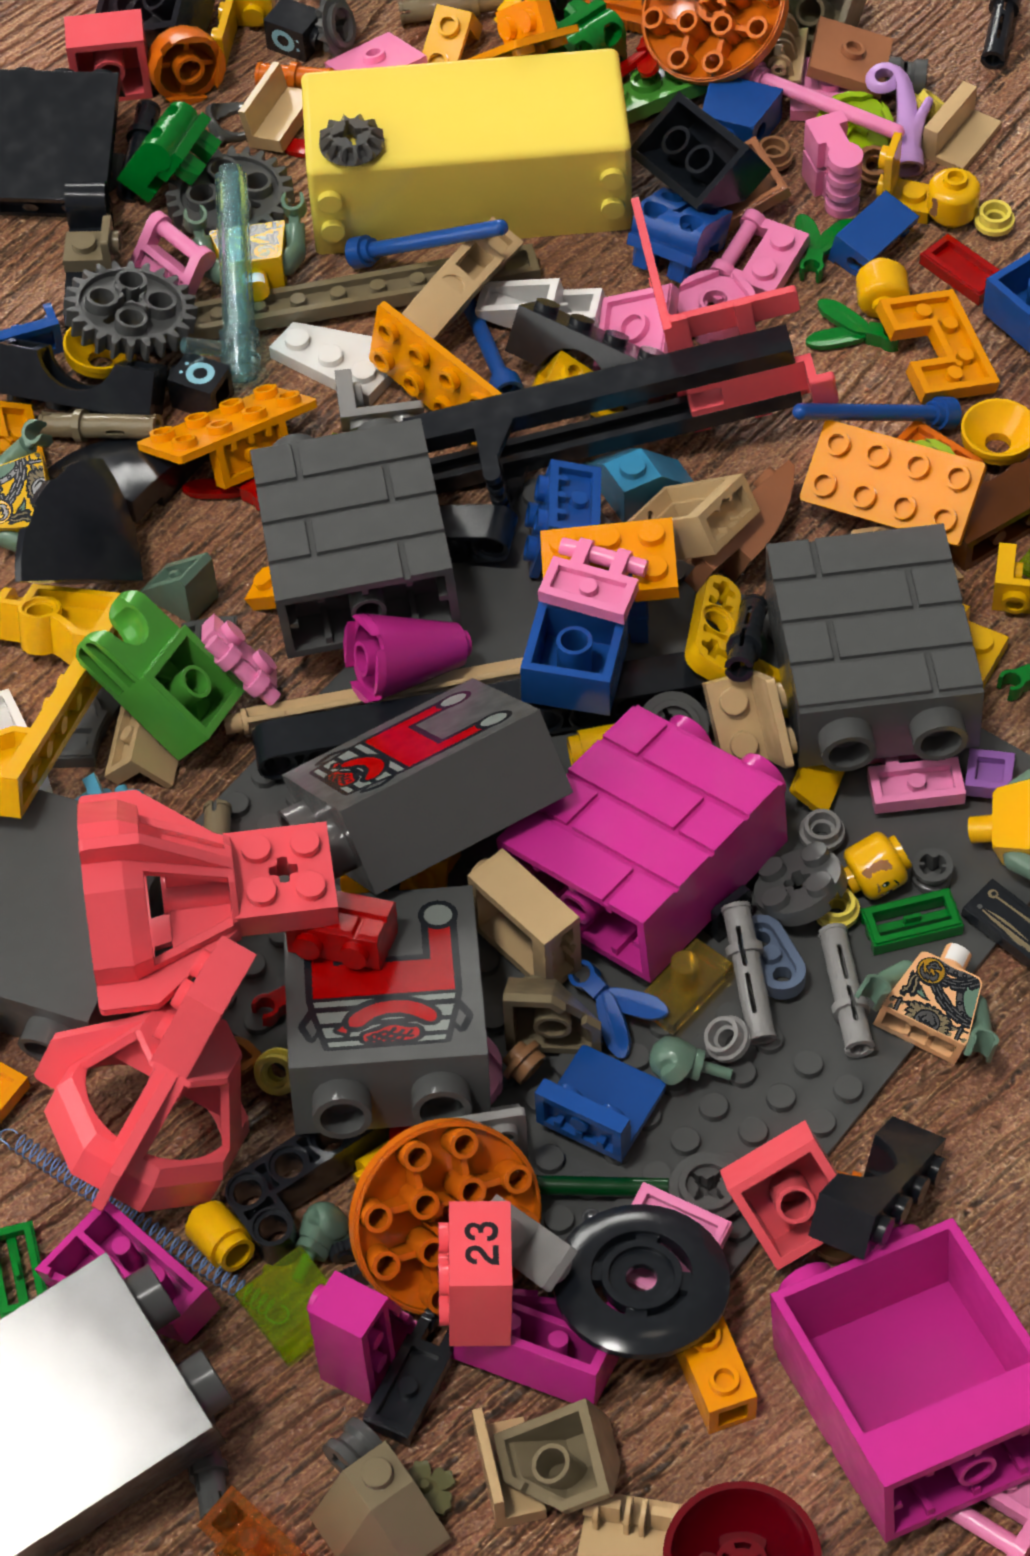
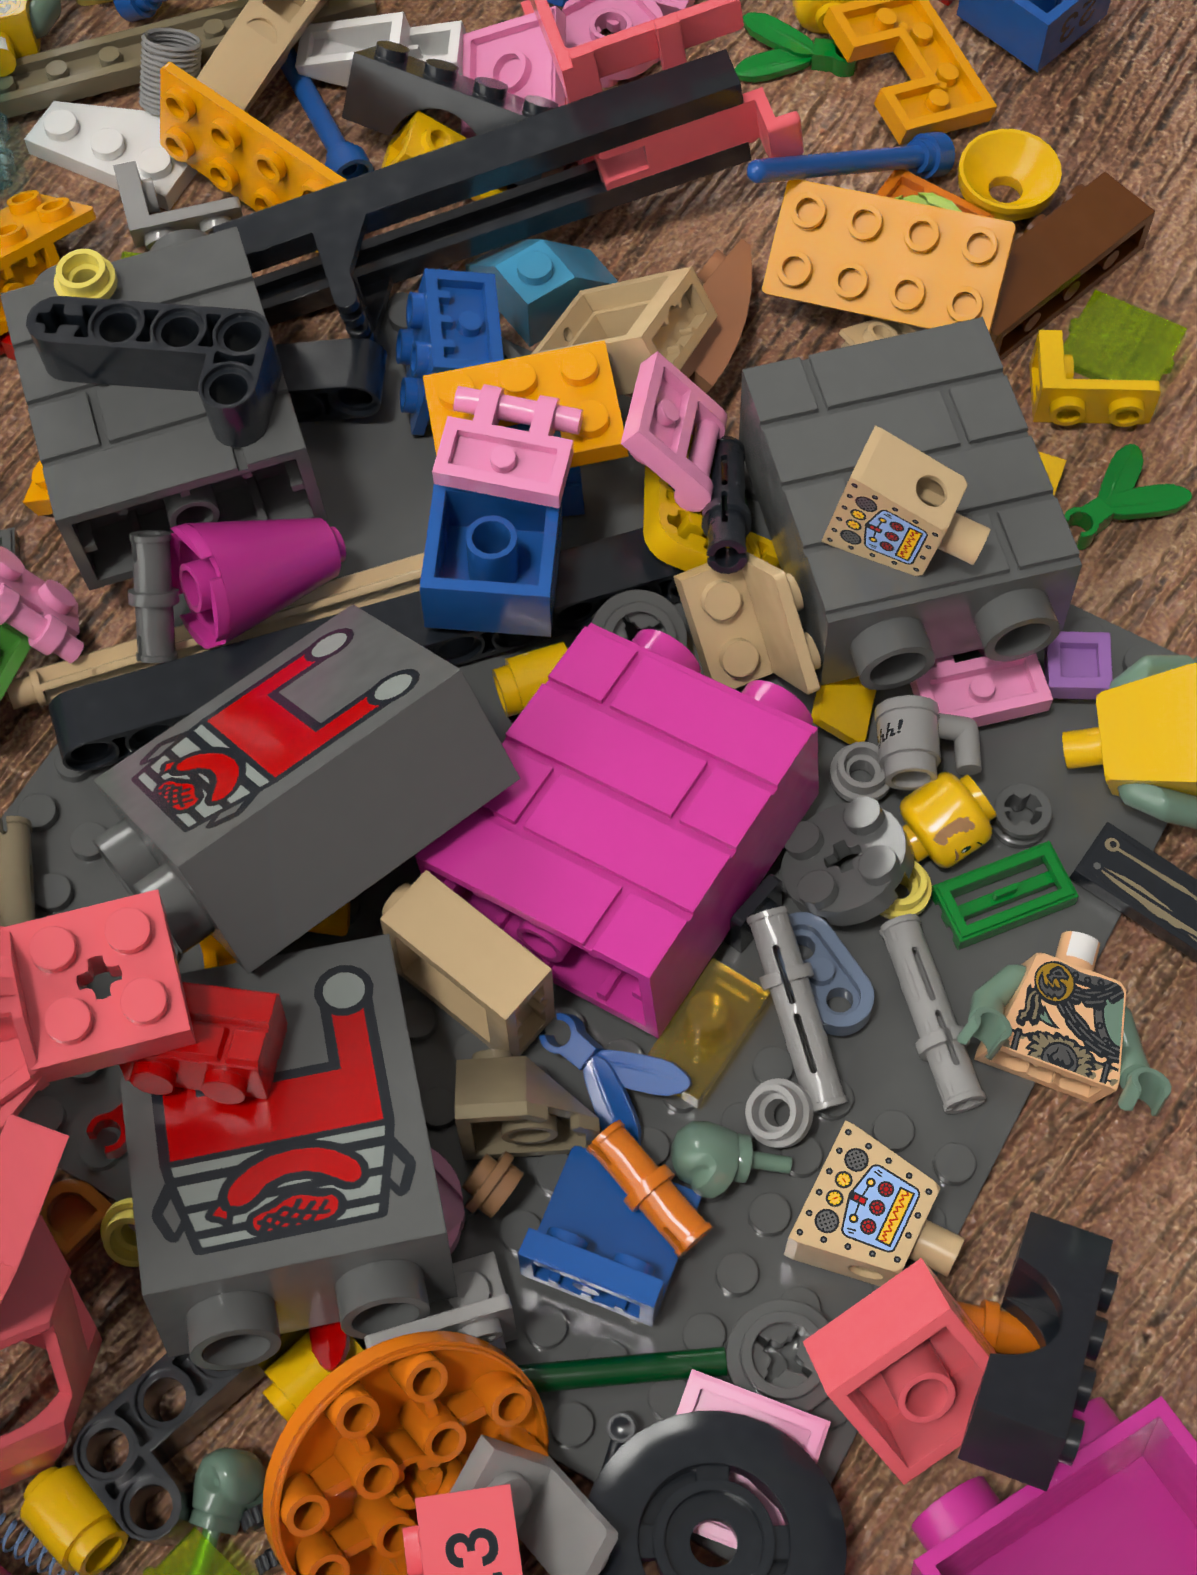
camera: 10 degrees left, 10 degrees up
(311, 444) = (85, 275): none -> light yellow plate
(334, 662) = (153, 596): none -> dark grey pin
(365, 493) = (166, 346): none -> black beam
(375, 292) = (158, 49): none -> light grey piece
(630, 1070) = (649, 1188): none -> orange pin
(705, 578) = (660, 425): none -> bright pink plate
(776, 1097) = (870, 1214): none -> tan torso
(856, 805) = (910, 741): none -> light grey piece
(857, 639) = (903, 509): none -> tan torso

